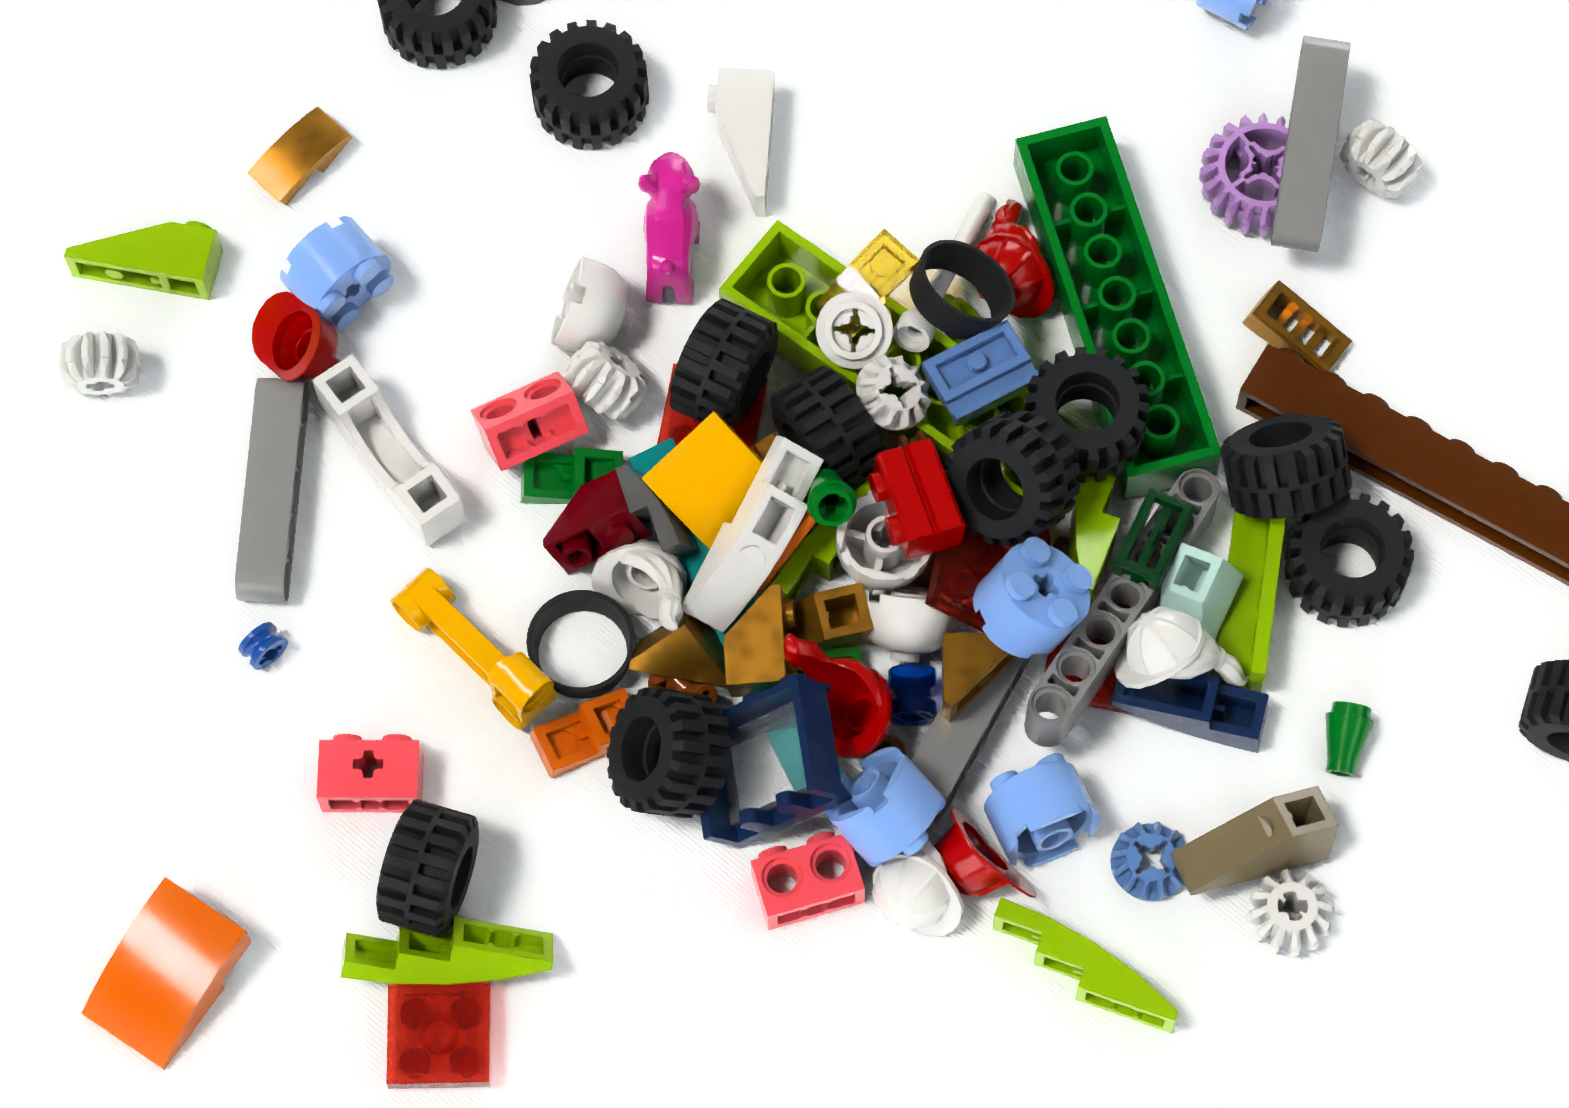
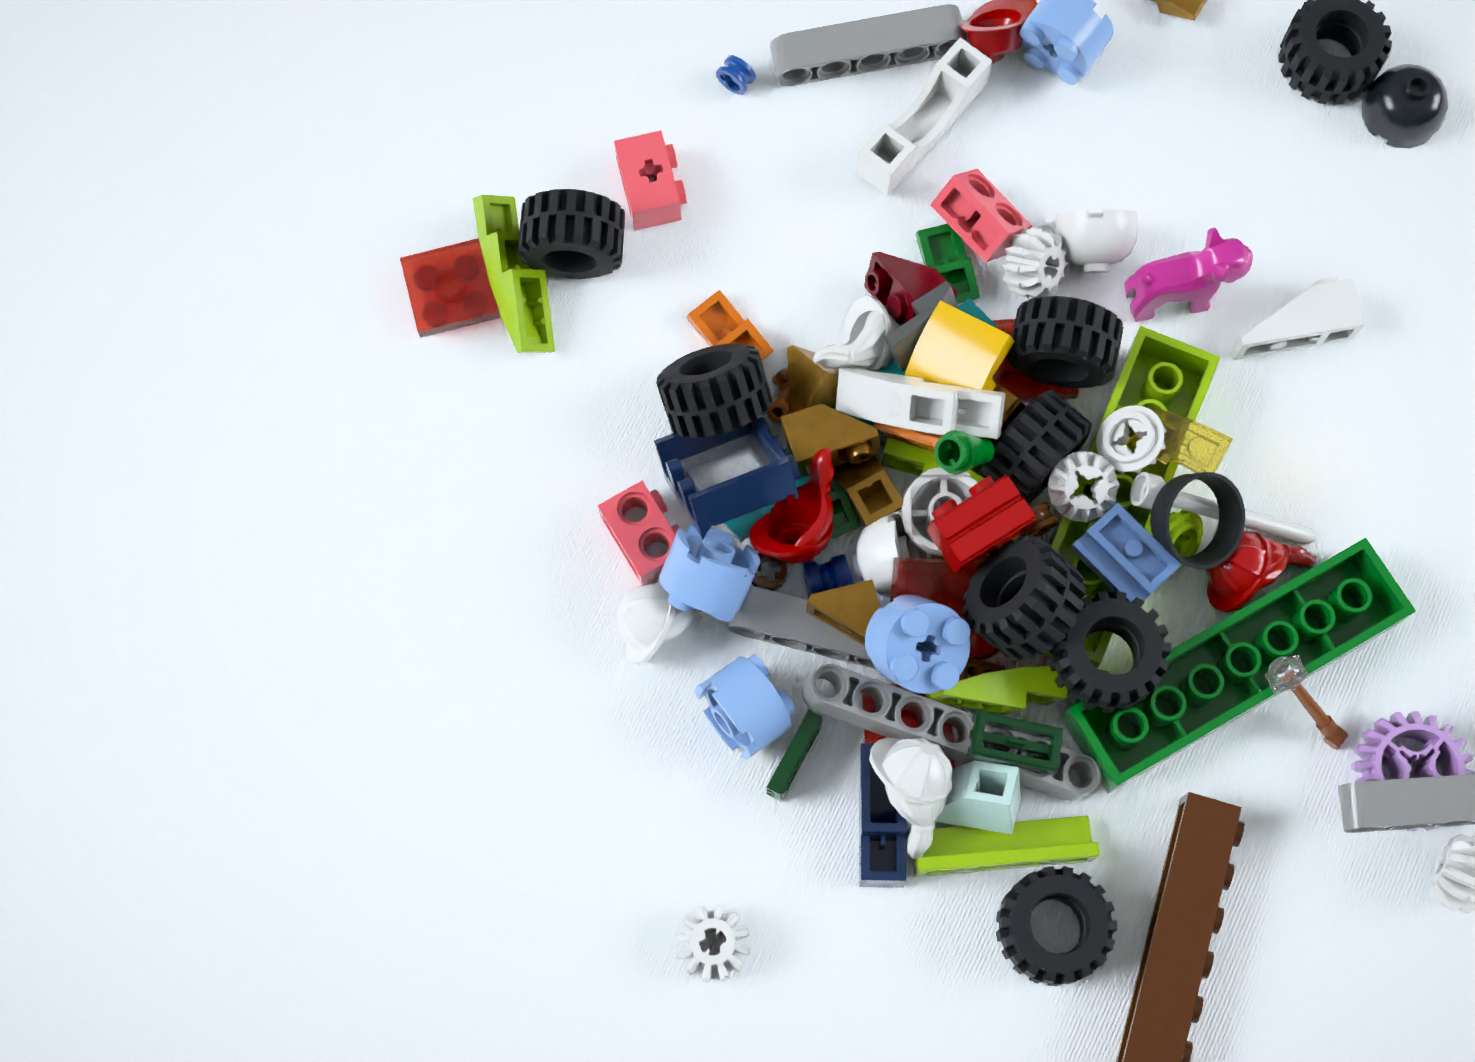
camera: 75 degrees right, 5 degrees up
(165, 973) = (455, 80): orange slope -> none
(516, 683) = (748, 260): yellow piece -> none
(581, 601) = (801, 272): black tyre -> none
(583, 52) = (1315, 157): black tyre -> none
(975, 864) = (689, 662): red piece -> none
(1101, 976) = (617, 790): lime slope -> none
(1105, 779) = (794, 756): none -> dark green tile
(1126, 861) = (740, 834): medium blue gear -> none
(1148, 254) = (1286, 675): none -> piece
(1263, 841) = (764, 899): dark tan slope -> none
(1286, 466) = (1120, 846): black tyre -> none
(1293, 306) = (1286, 843): pearl gold slope -> none
(1346, 736) = (889, 960): green cone -> none

